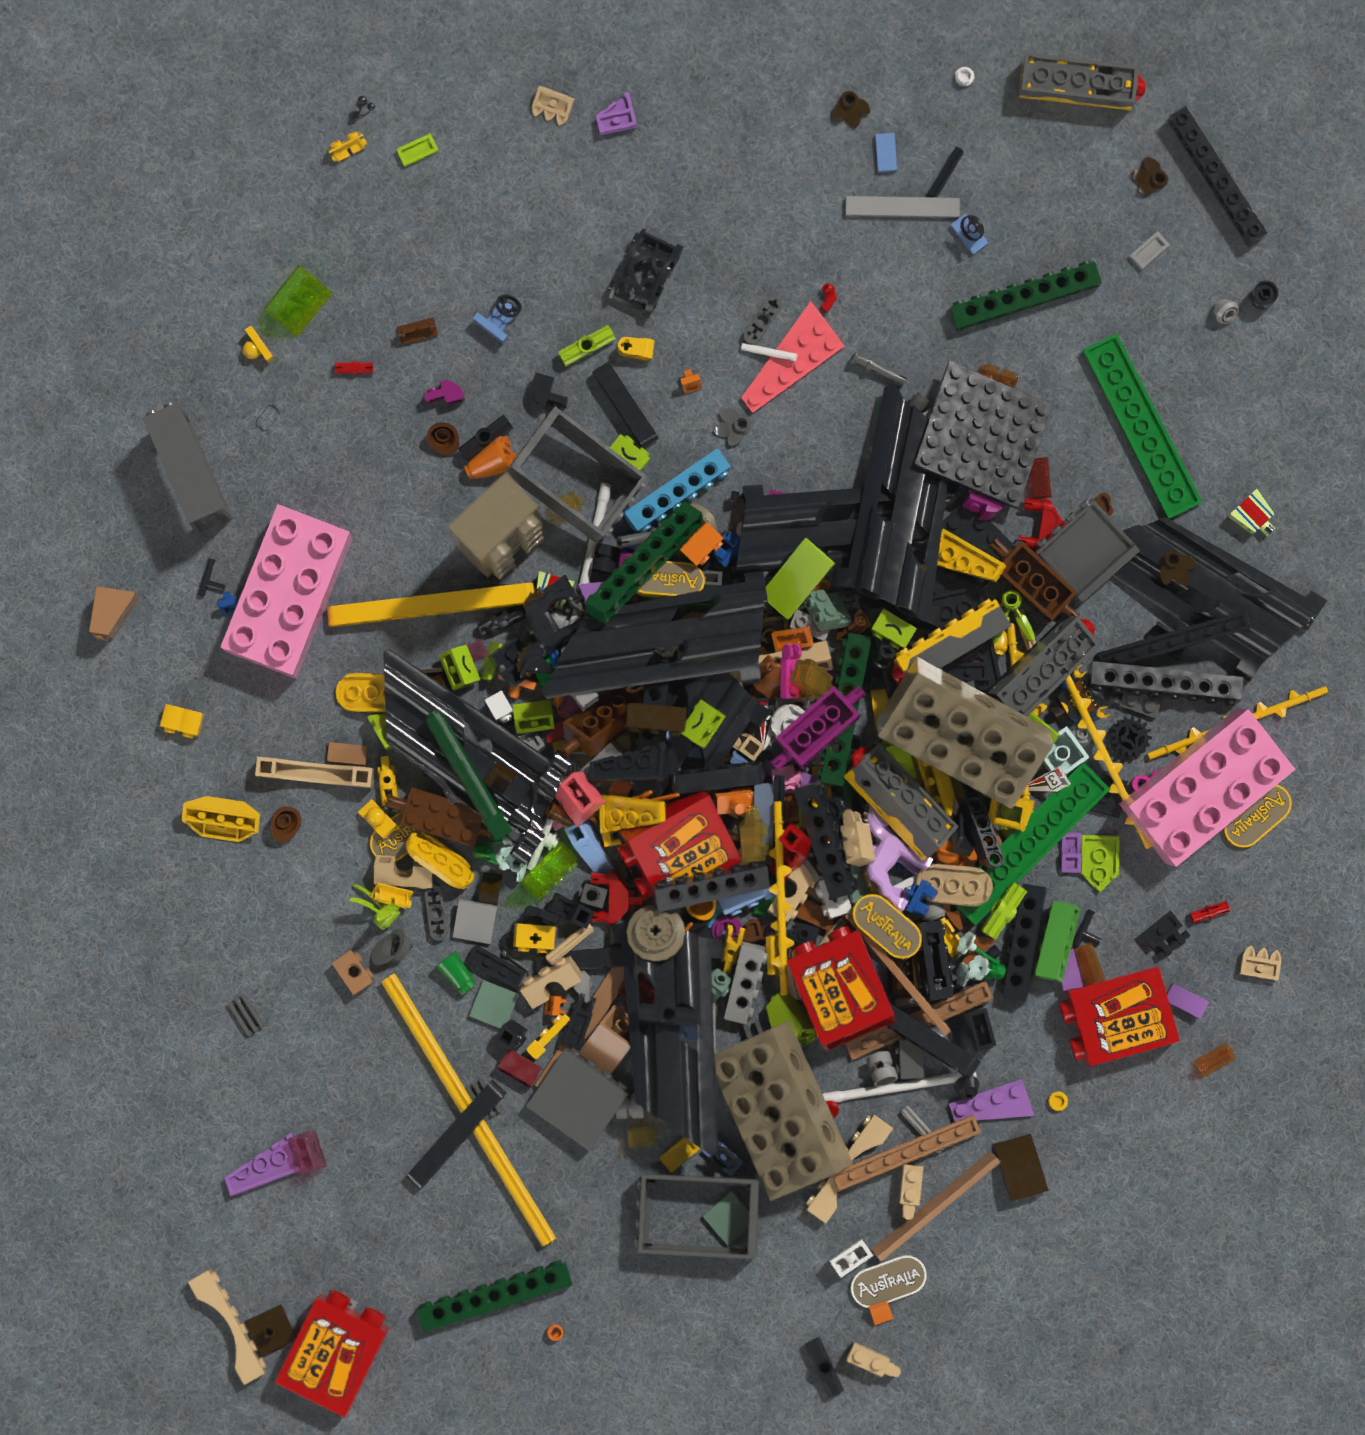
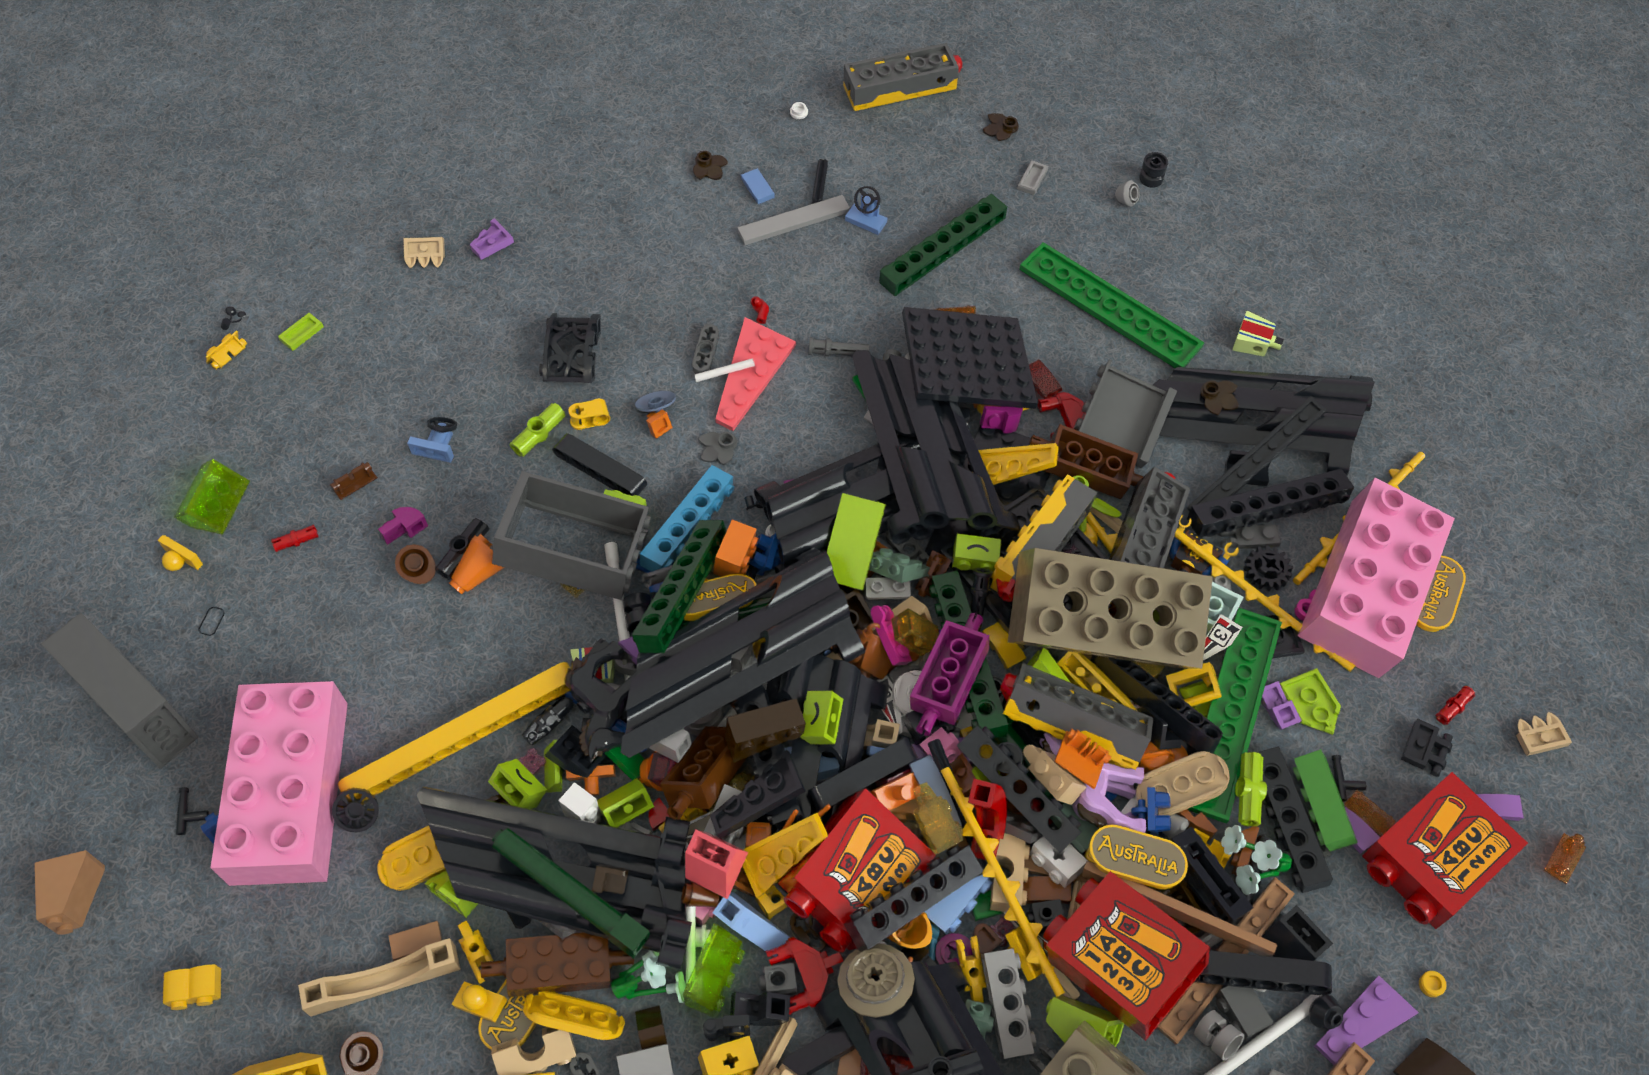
camera: 20 degrees left, 25 degrees down
(334, 635) = (355, 810): none -> black wheel
(498, 528) = (499, 597): dark tan brick -> none
(542, 394) = (505, 481): black brick -> none
(696, 359) = (655, 401): none -> sand blue dish
(792, 636) = (883, 597): orange tile -> none
(882, 838) = (1080, 758): none -> orange hinge
(1217, 176) = (1059, 104): black brick -> none

